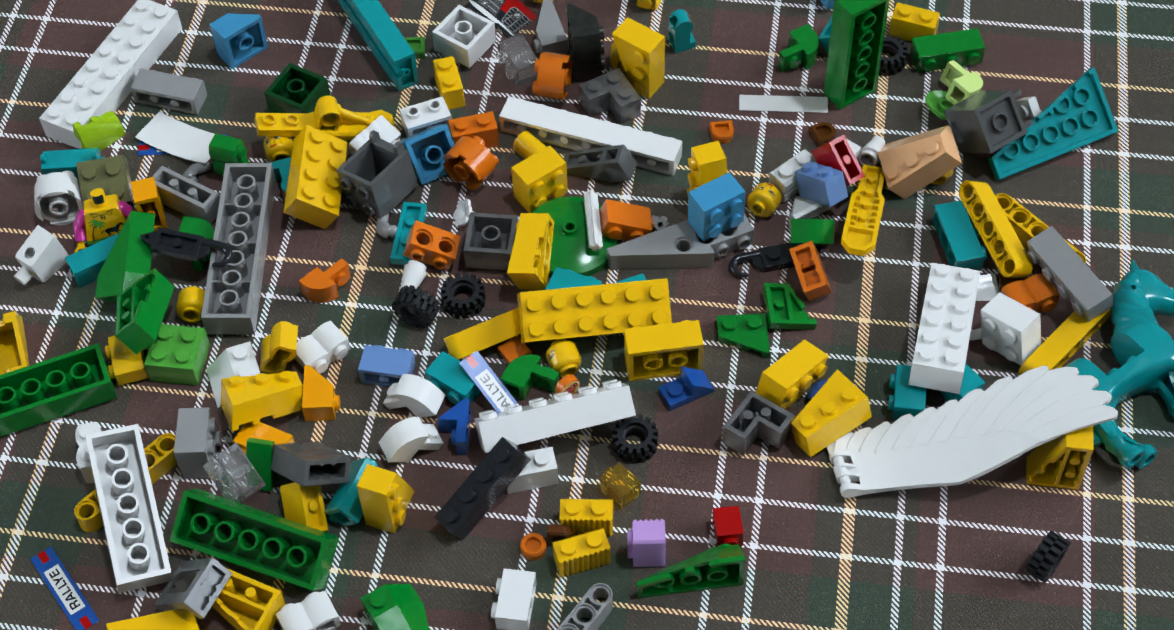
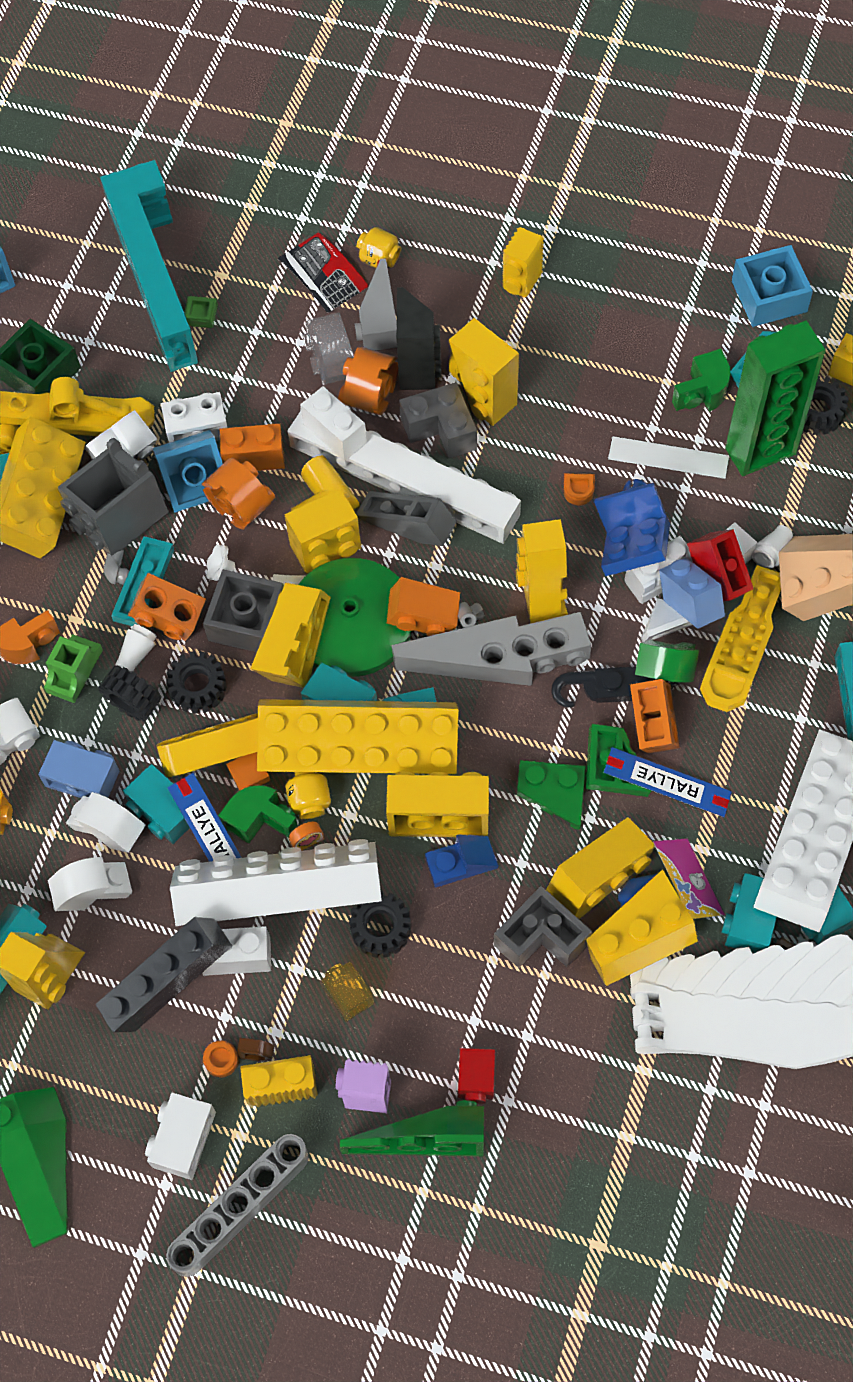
camera: 10 degrees right, 10 degrees up
(366, 296) = (70, 666): none -> bright green brick
(449, 82) = (233, 371): yellow brick -> none
(458, 424) = (157, 864): blue slope -> none
(464, 36) = (265, 306): white brick -> none
(534, 104) = (333, 423): none -> white brick
(587, 515) = (295, 1029): yellow brick -> none
(593, 220) = (381, 602): white axle -> none
(680, 31) = (549, 336): teal leg -> none
(716, 206) = (543, 611): dark azure brick -> none
(764, 199) = (615, 598): yellow head -> none
(768, 147) = (634, 527): none -> blue plate
(822, 133) = (712, 509): reddish brown tile -> none
(827, 315) = (667, 782): none -> sticker
(856, 375) = (688, 878): none -> sticker

